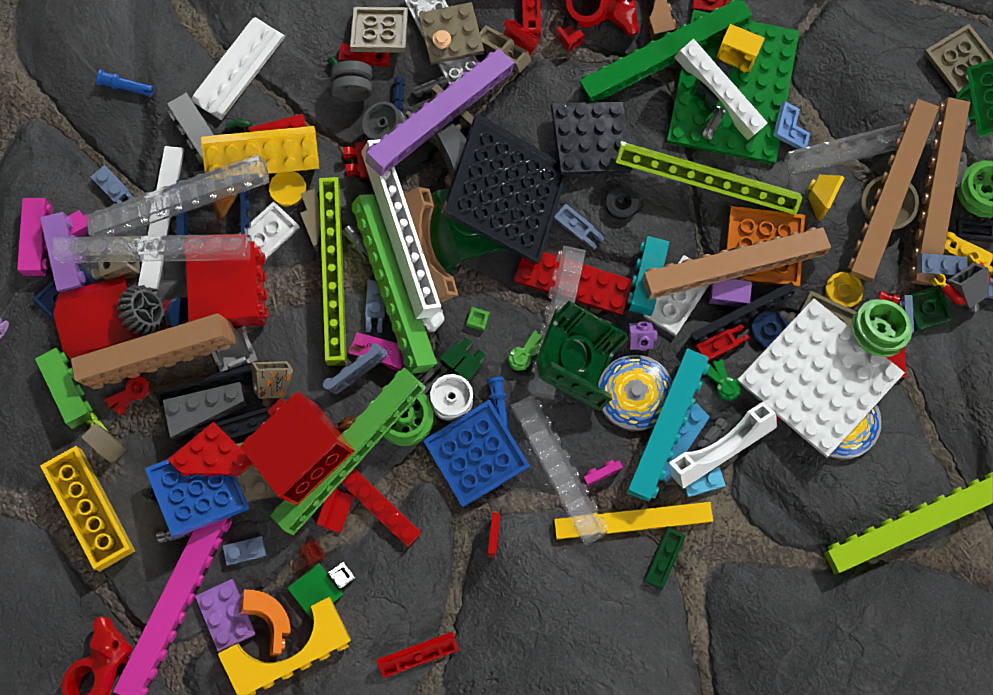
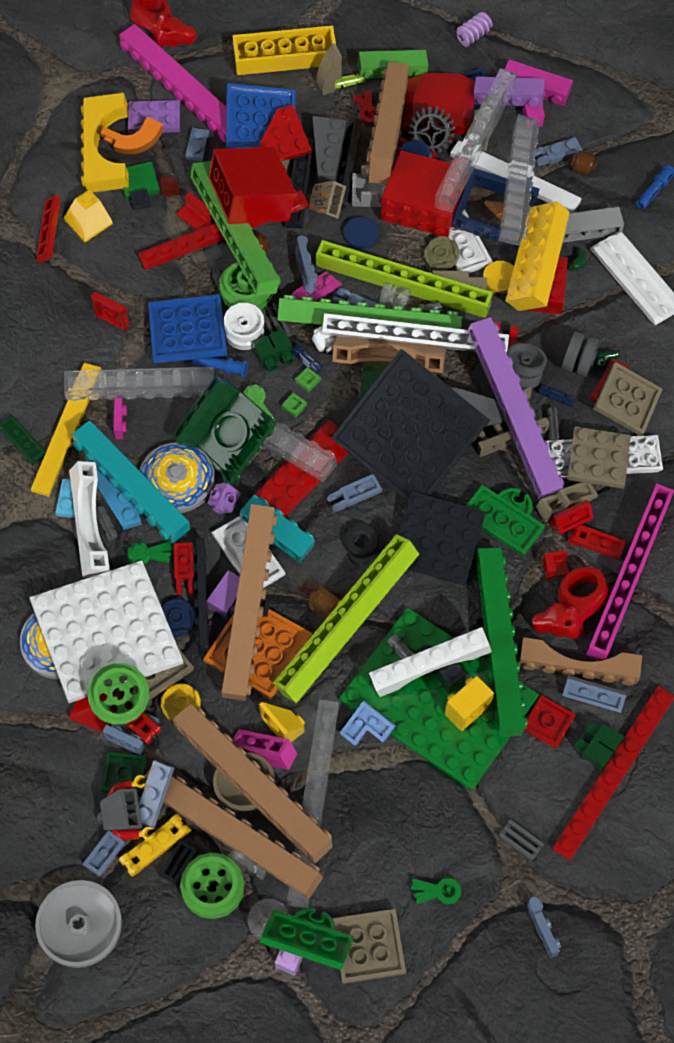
camera: 115 degrees right, 10 degrees down
(122, 156) = (583, 163): none -> reddish brown head
(284, 250) = (441, 253): none -> olive tile
(289, 337) = (361, 233): none -> dark blue tile
(355, 272) = (394, 296): none -> clear wheel
(386, 621) = (87, 216): none -> yellow slope
(441, 39) = (591, 438): light nougat plate -> none
(457, 327) = (307, 359): none -> dark blue axle
(511, 319) = (294, 405): none -> bright green tile
(543, 87) = (507, 519): none -> green plate
(698, 208) = (323, 602): none -> clear orange brick
(851, 204) = (275, 750): none -> dark pink slope
(889, 20) = (446, 891): none -> green piece

